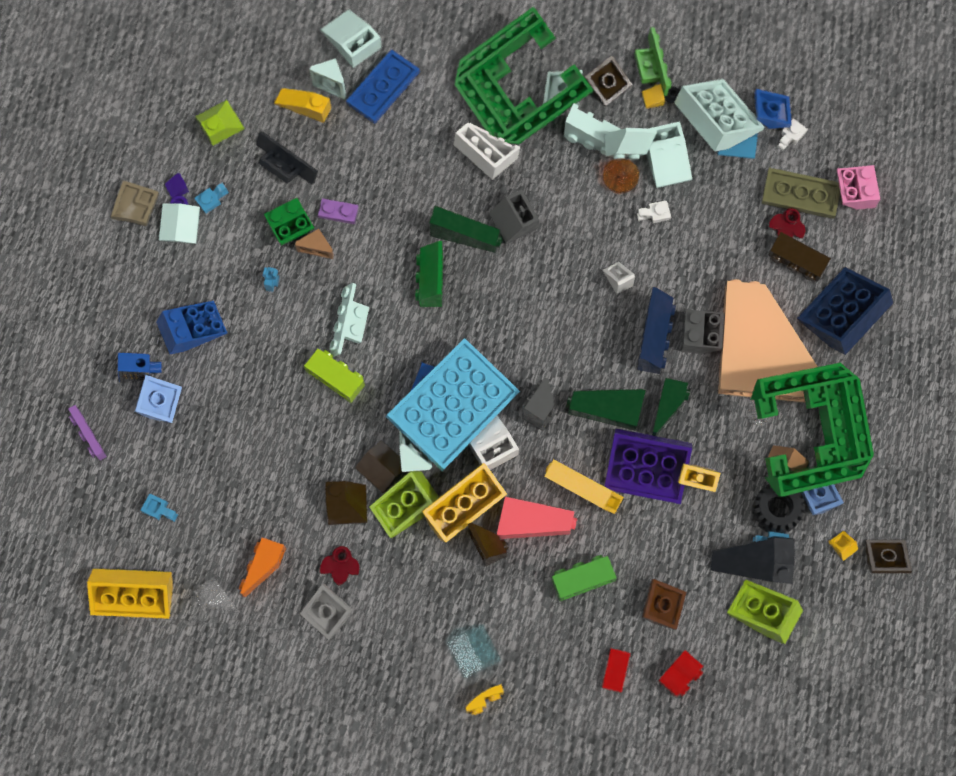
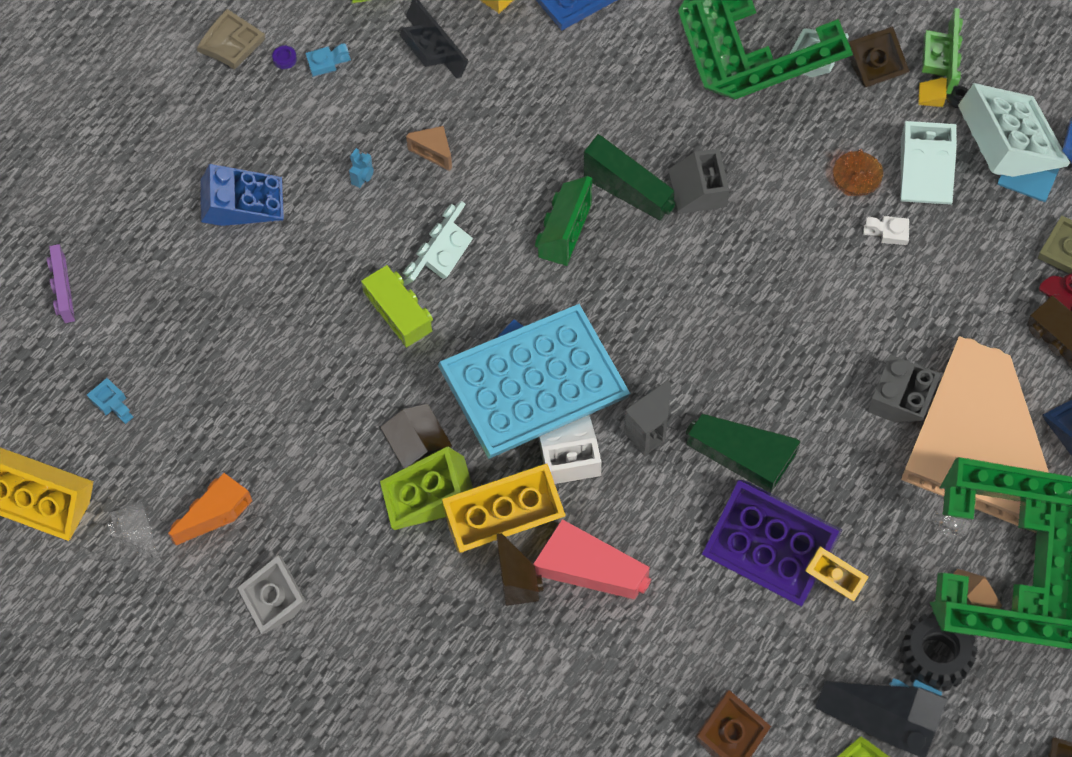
camera: 20 degrees right, 10 degrees down
(135, 366) = (152, 222): blue torso -> none
(158, 399) = (164, 270): light blue slope -> none
(176, 186) = (290, 34): dark purple slope -> none
(179, 223) = (276, 76): light aqua slope -> none
(288, 221) = (409, 107): green slope -> none
(338, 211) = (477, 117): medium lavender plate -> none
(340, 568) = (310, 546): dark red plate -> none
(346, 502) = (350, 465): dark brown slope -> none
(411, 457) = (455, 429): light aqua slope -> none
(474, 651) = (449, 710): clear light blue slope -> none
(485, 150) = (689, 94): white wedge -> none
(583, 486) = (675, 541): yellow slope -> none
(583, 577) = (632, 660): bright green brick -> none
(587, 130) = (835, 109): light aqua wedge -> none
(619, 277) = (814, 295): white slope -> none
(629, 143) = (880, 129): light aqua slope -> none
(655, 332) = (839, 372): dark blue slope -> none
(671, 400) = (831, 469): dark green slope -> none
(822, 499) = (1005, 659): medium blue slope -> none
(844, 545) = (1018, 734): yellow slope -> none

